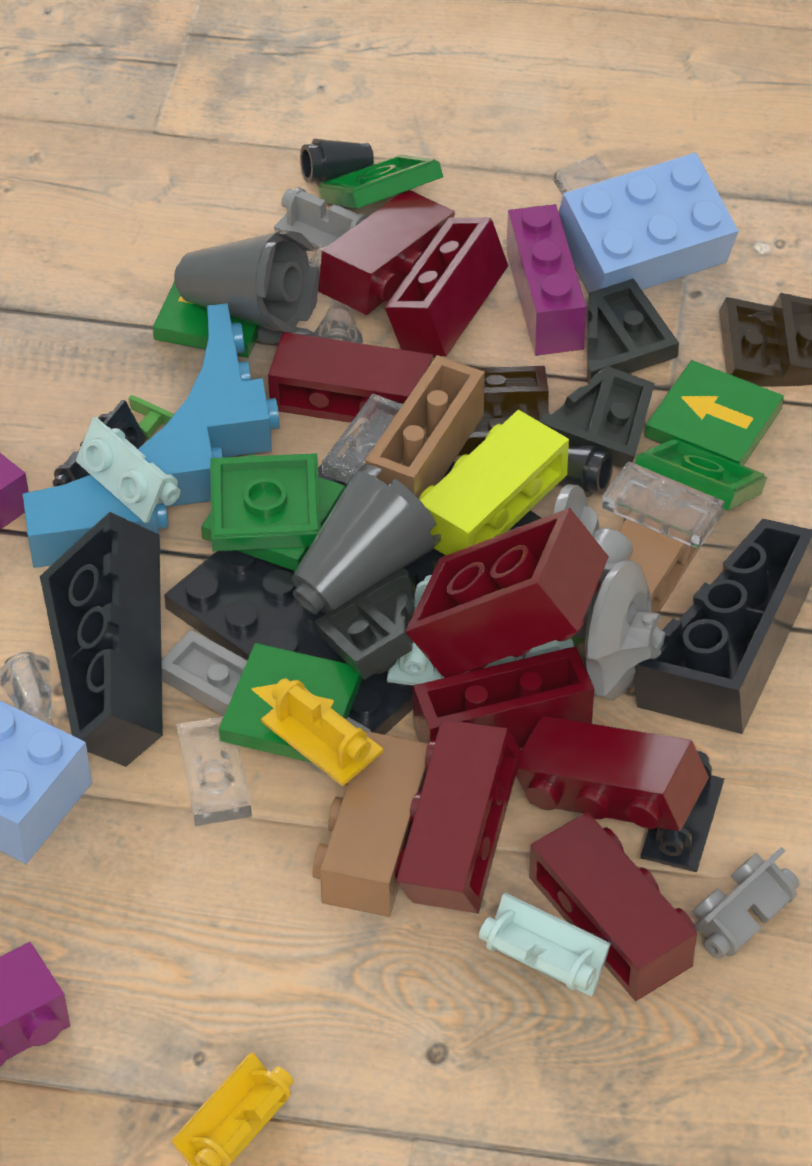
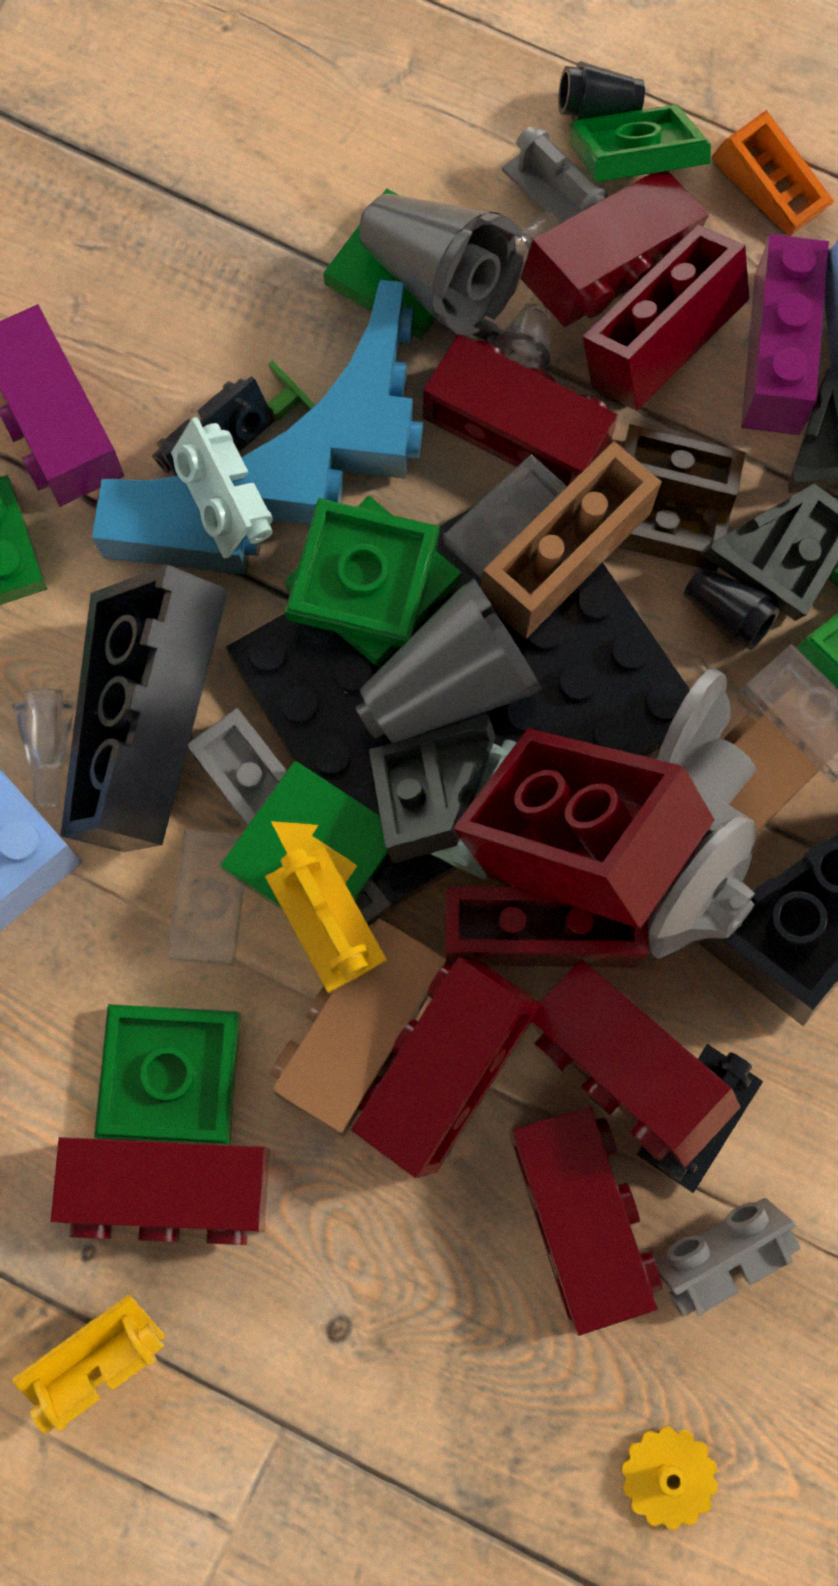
camera: 15 degrees right, 25 degrees up
(223, 908) = (168, 1075): none -> green tile
(249, 976) = (160, 1188): none -> dark red brick
(476, 163) = (776, 149): none -> orange slope
(496, 483) = (625, 625): neon yellow brick -> none
(546, 944) = (512, 1273): light aqua hinge -> none
(756, 1076) = (669, 1477): none -> yellow piece

